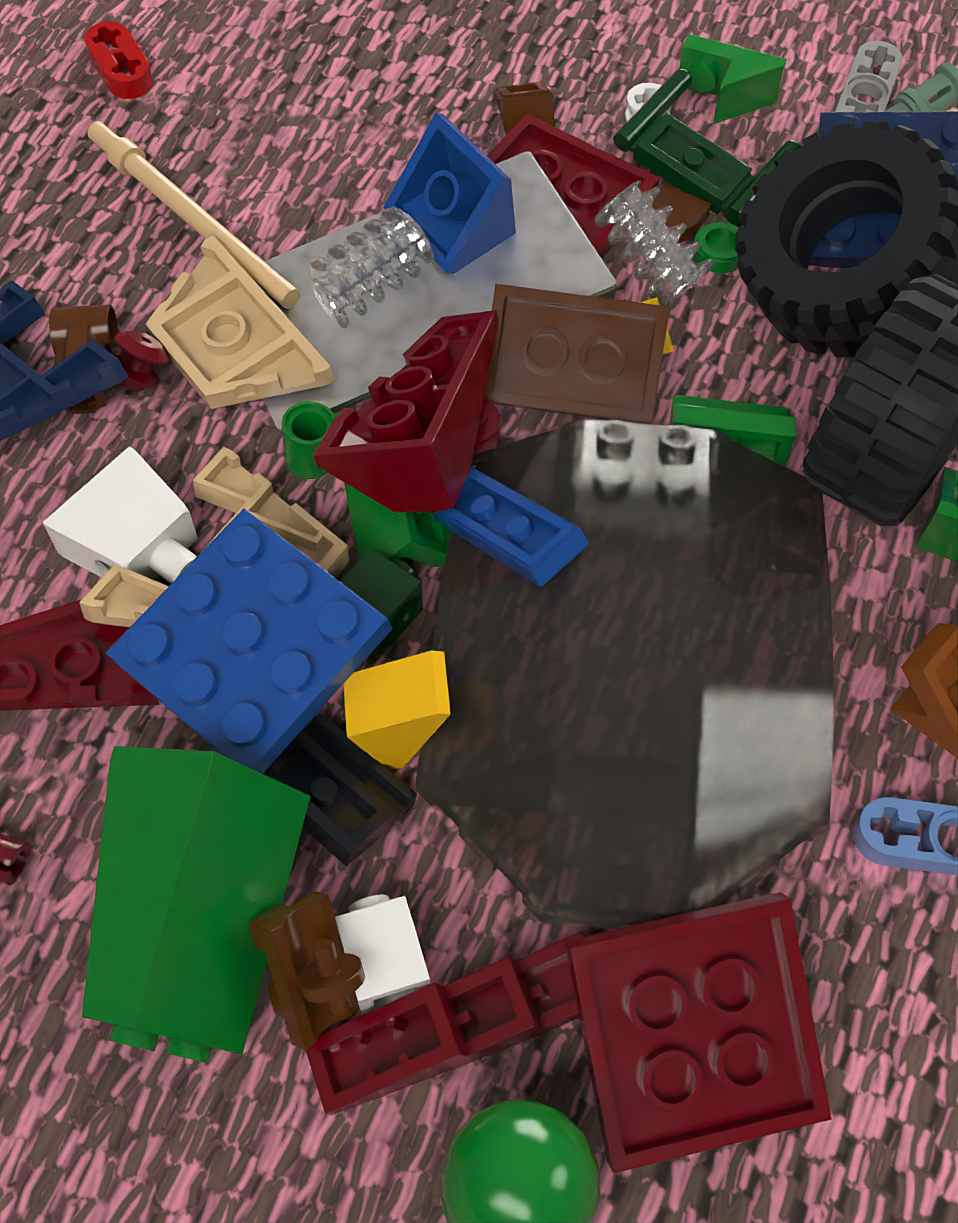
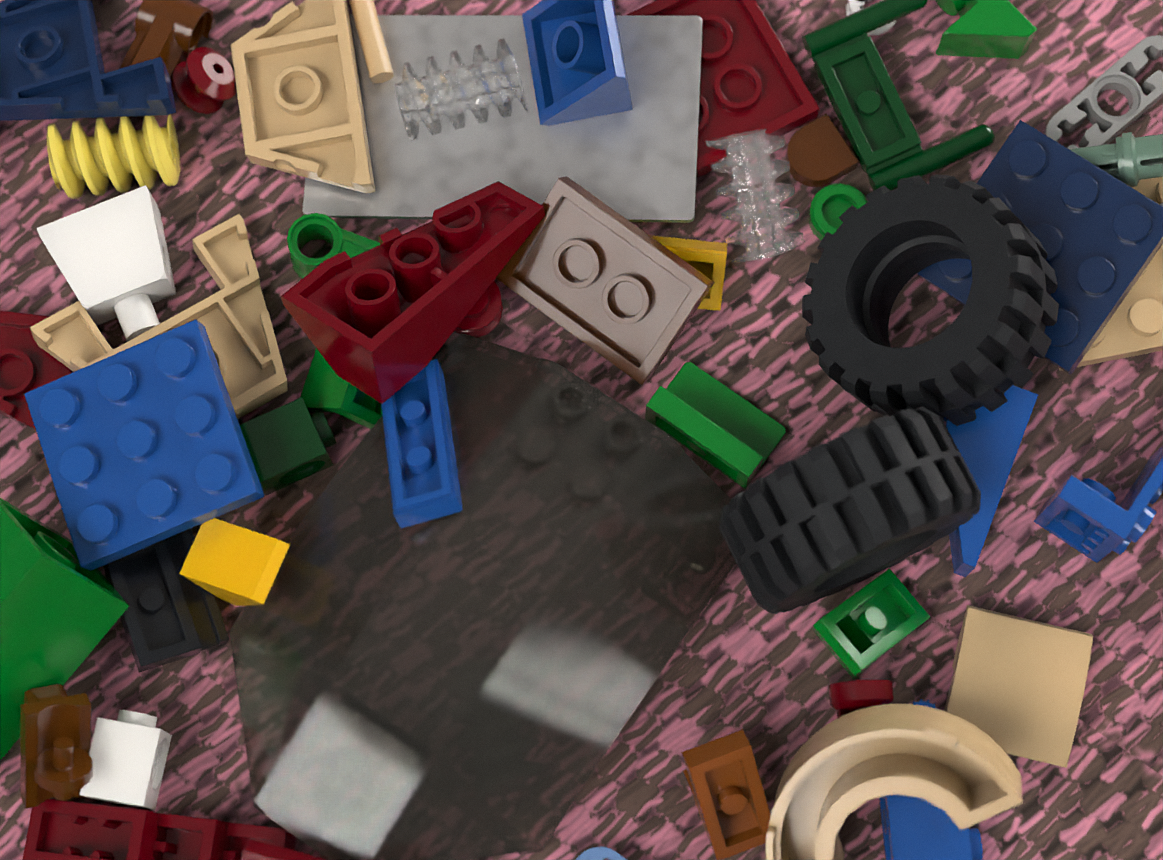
camera: 30 degrees right, 15 degrees up
(80, 443) = (113, 156): none -> light yellow piece

